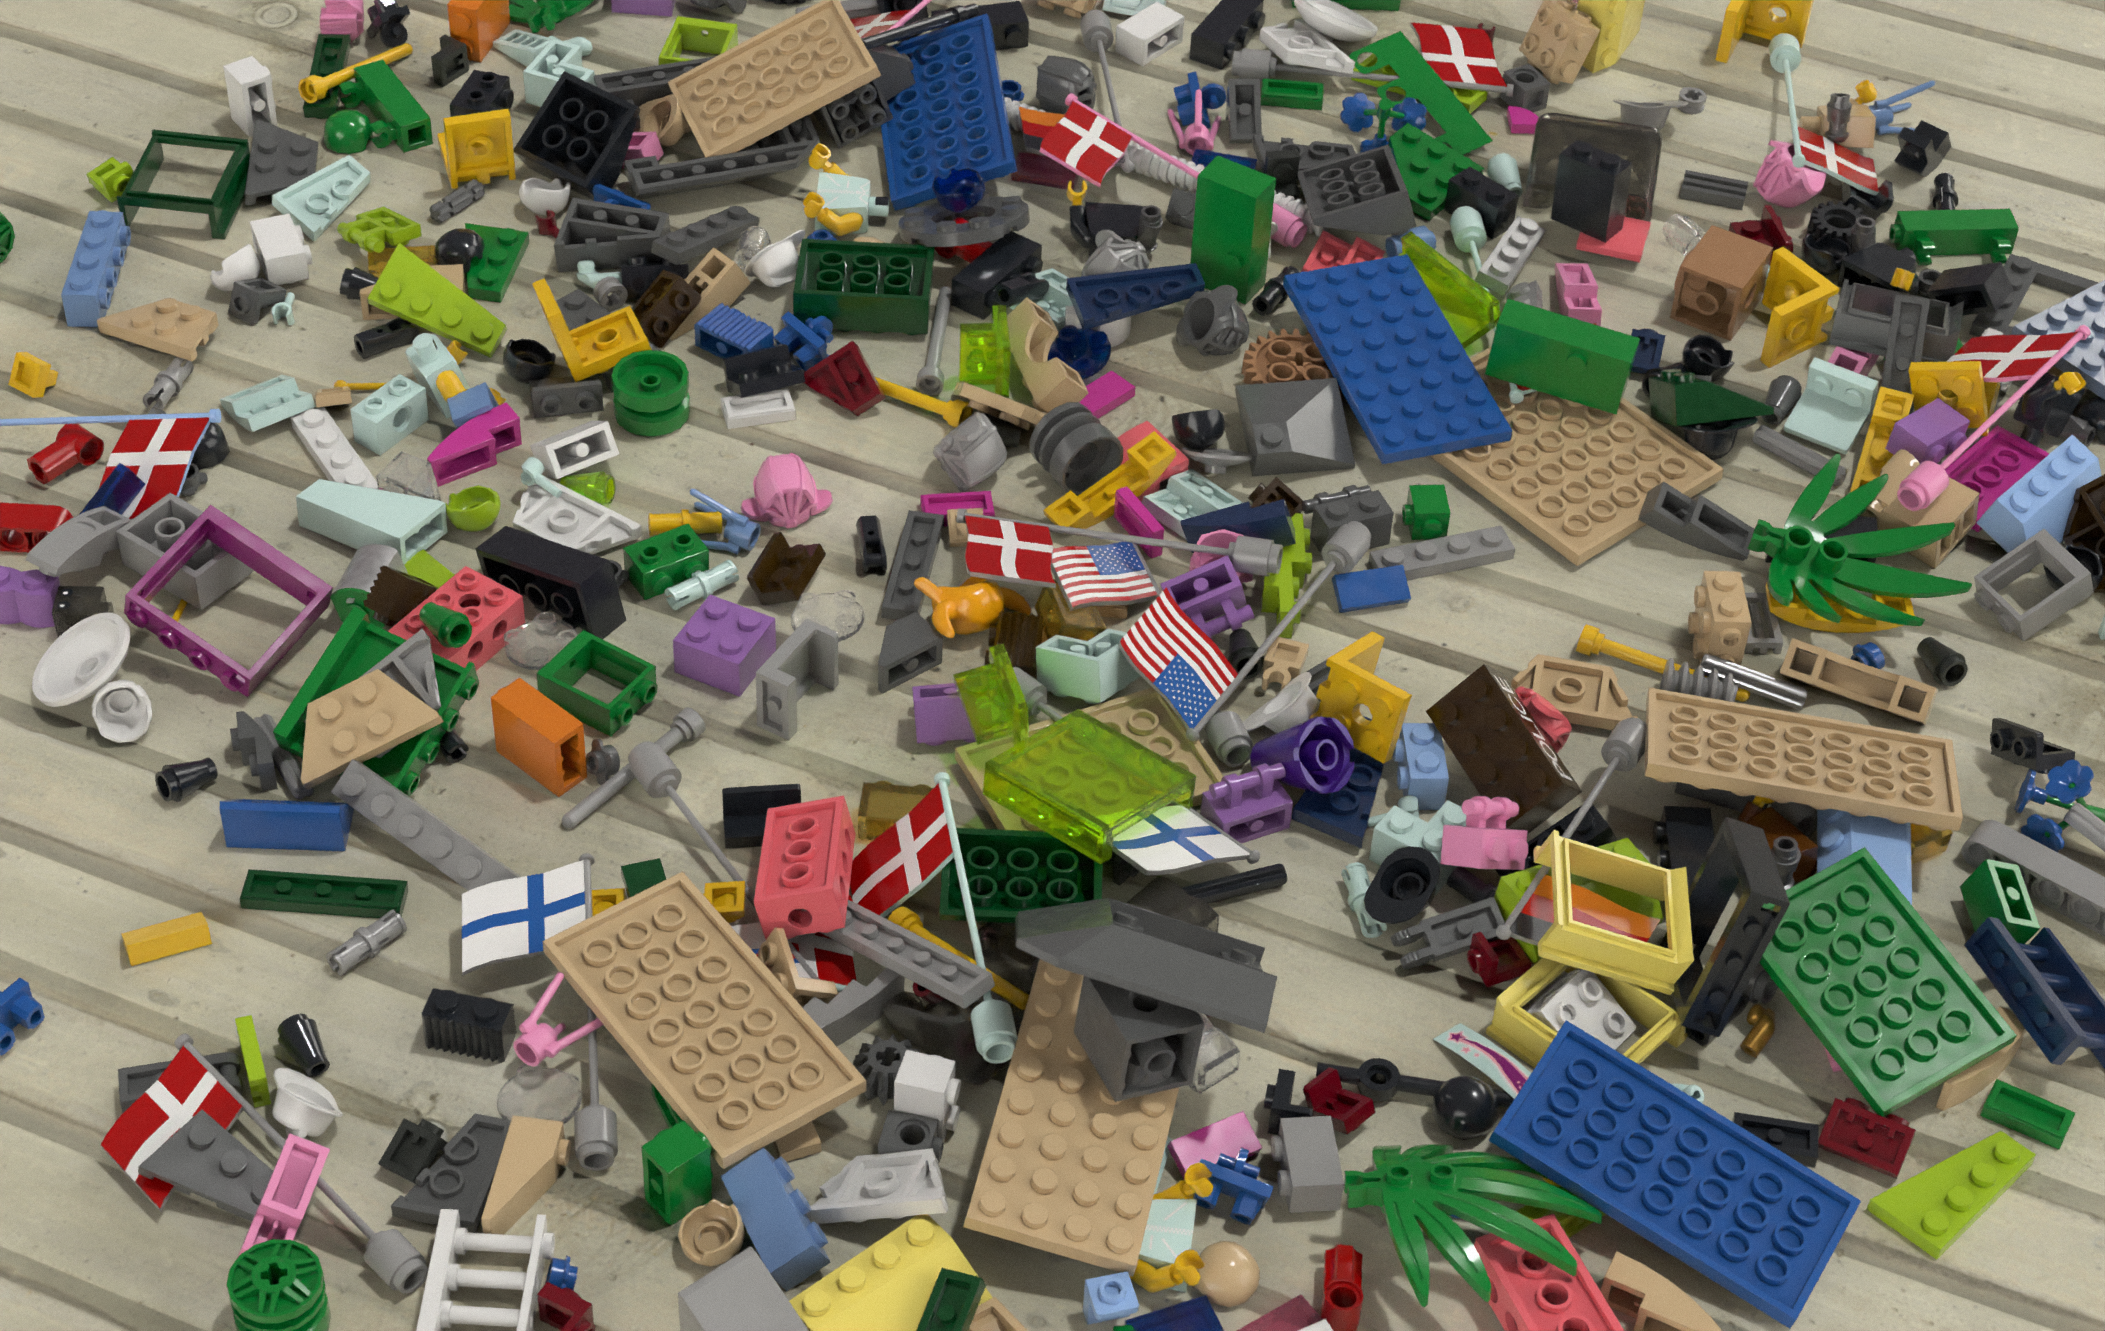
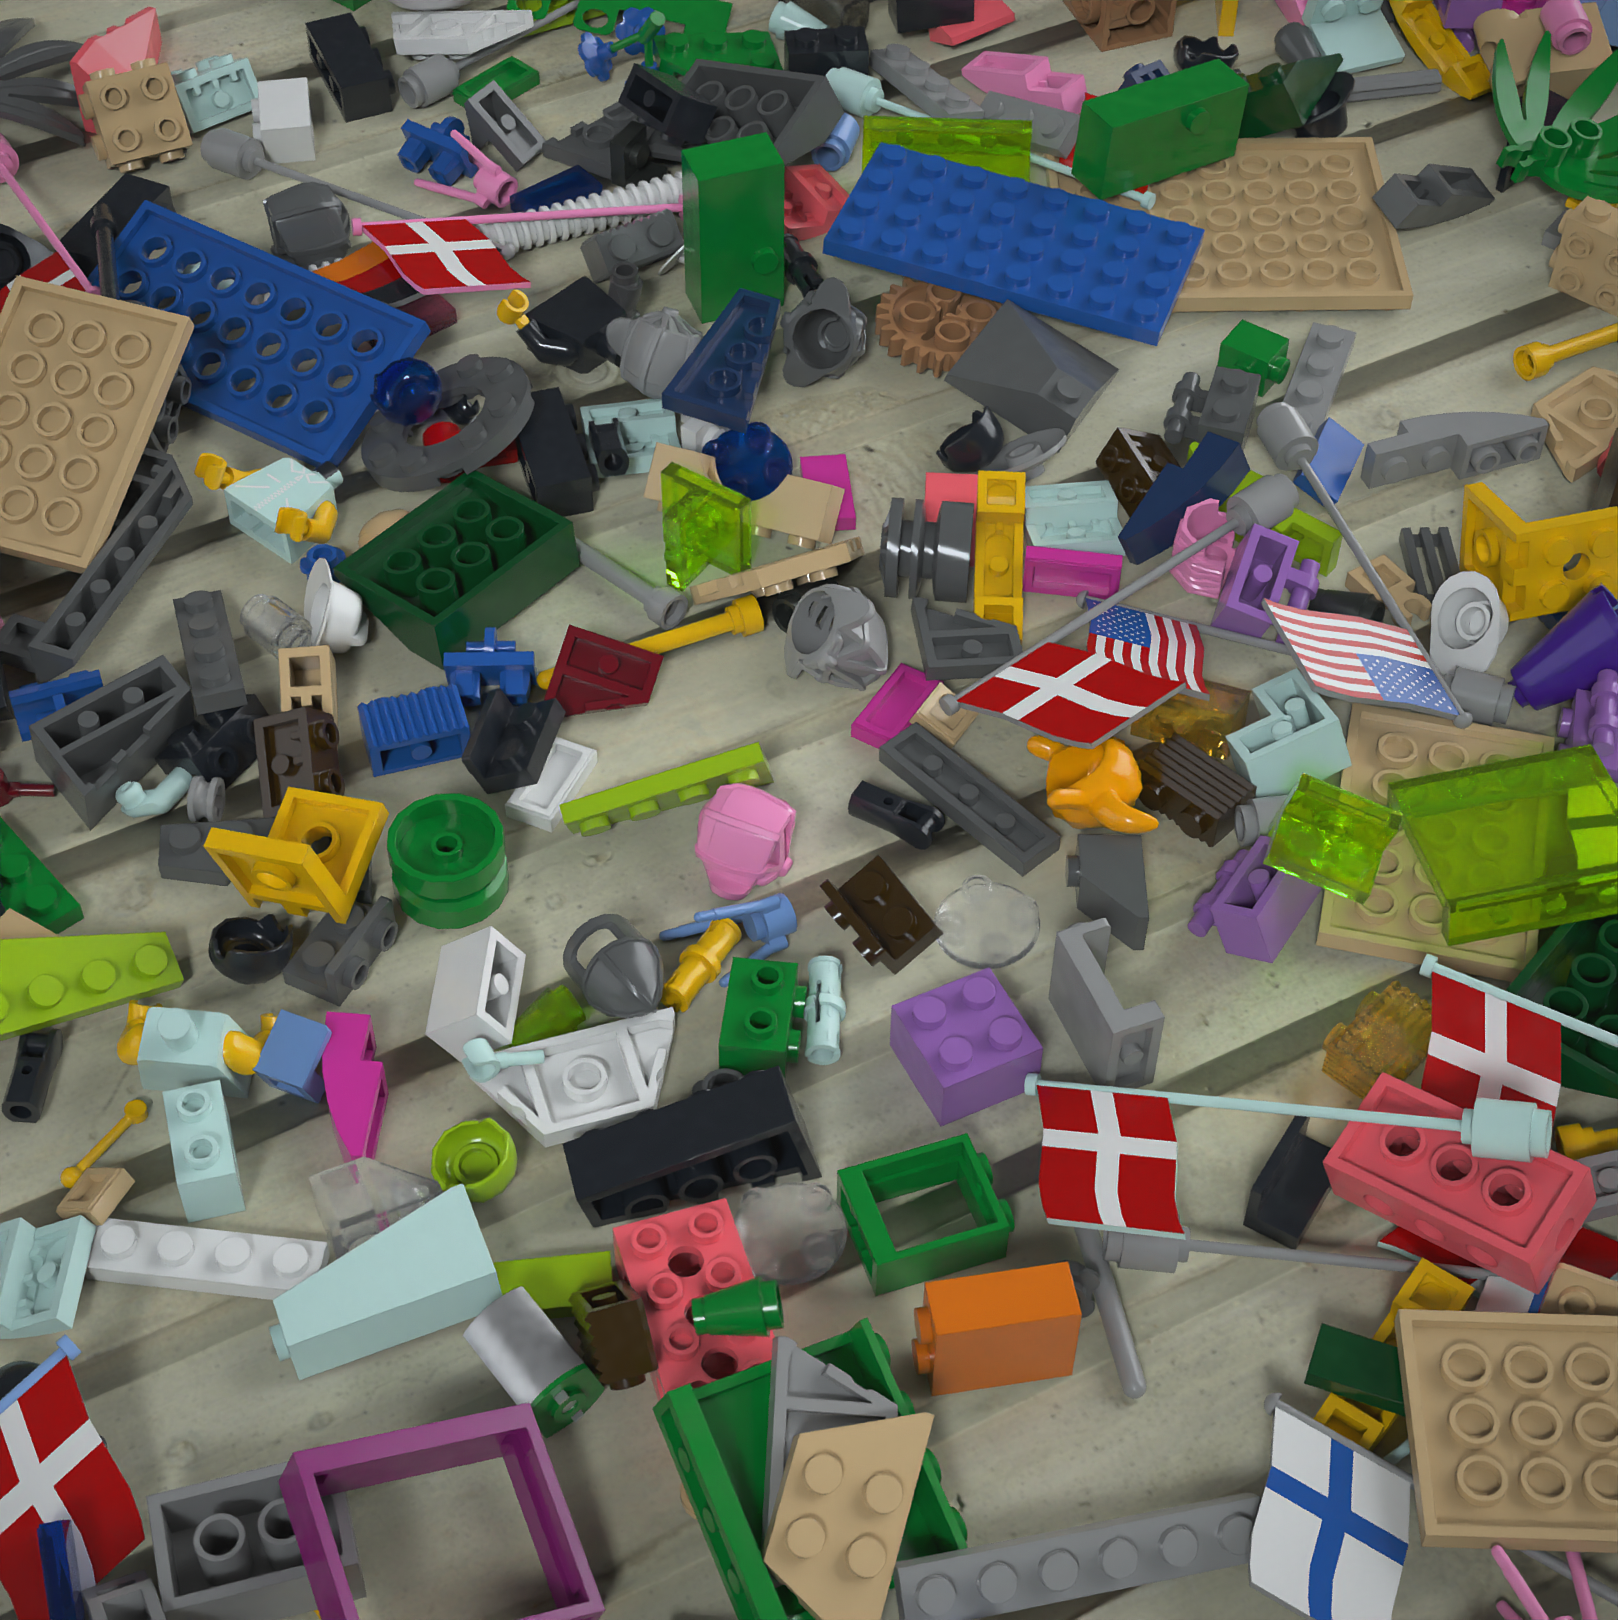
camera: 50 degrees left, 5 degrees up
(638, 490) = (622, 976): none -> dark grey helmet
(714, 720) = (1115, 1149): none -> flag
(774, 440) = (666, 790): none -> lime wing
(1024, 499) = (962, 643): none -> dark grey wing
(1319, 152) = (667, 105): none -> black brick
(1439, 623) = (1459, 440): none -> light grey slope

